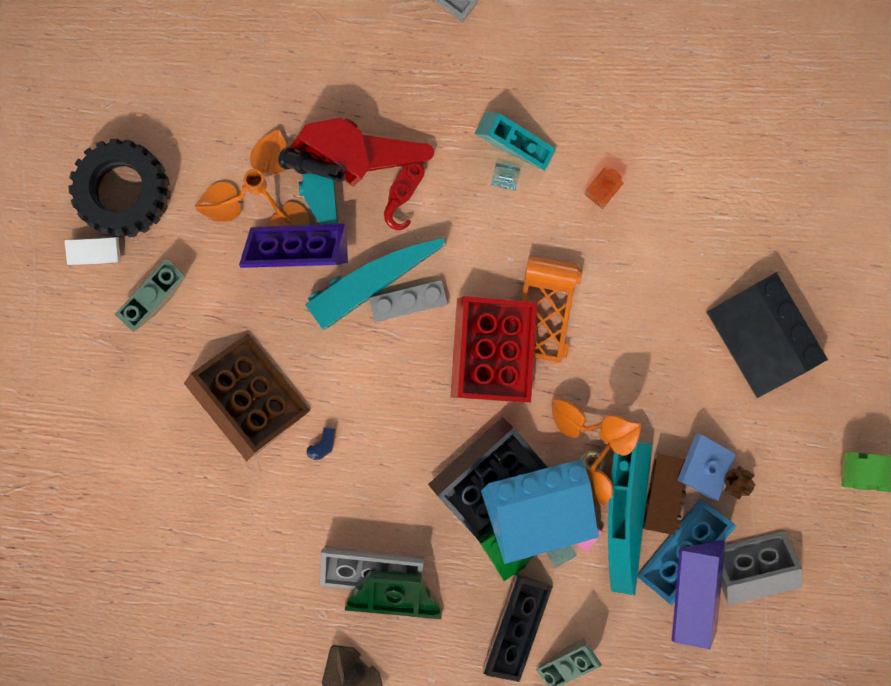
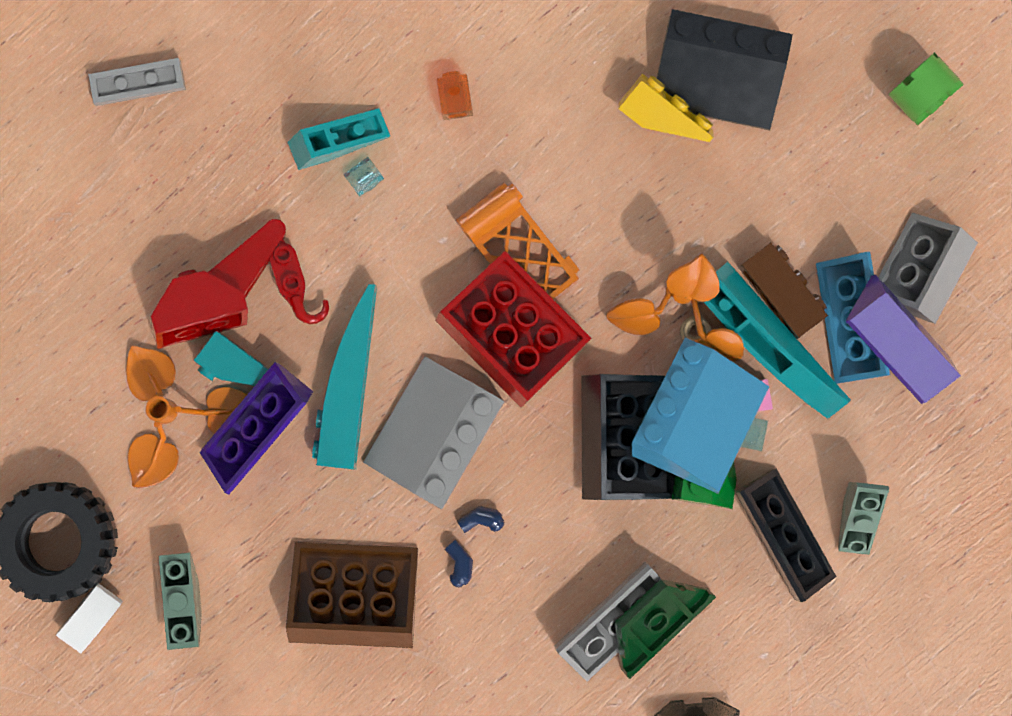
camera: 45 degrees left, 0 degrees up
(304, 163) = (185, 349): black pin -> none
(363, 432) = (484, 516): none -> dark blue arm
(388, 358) = (433, 432): none -> light grey slope
(408, 301) = (398, 367): light grey plate -> none
(706, 318) = (658, 111): none -> yellow slope
(706, 467) = (792, 231): medium blue plate -> none
(739, 482) = (832, 214): reddish brown gear -> none

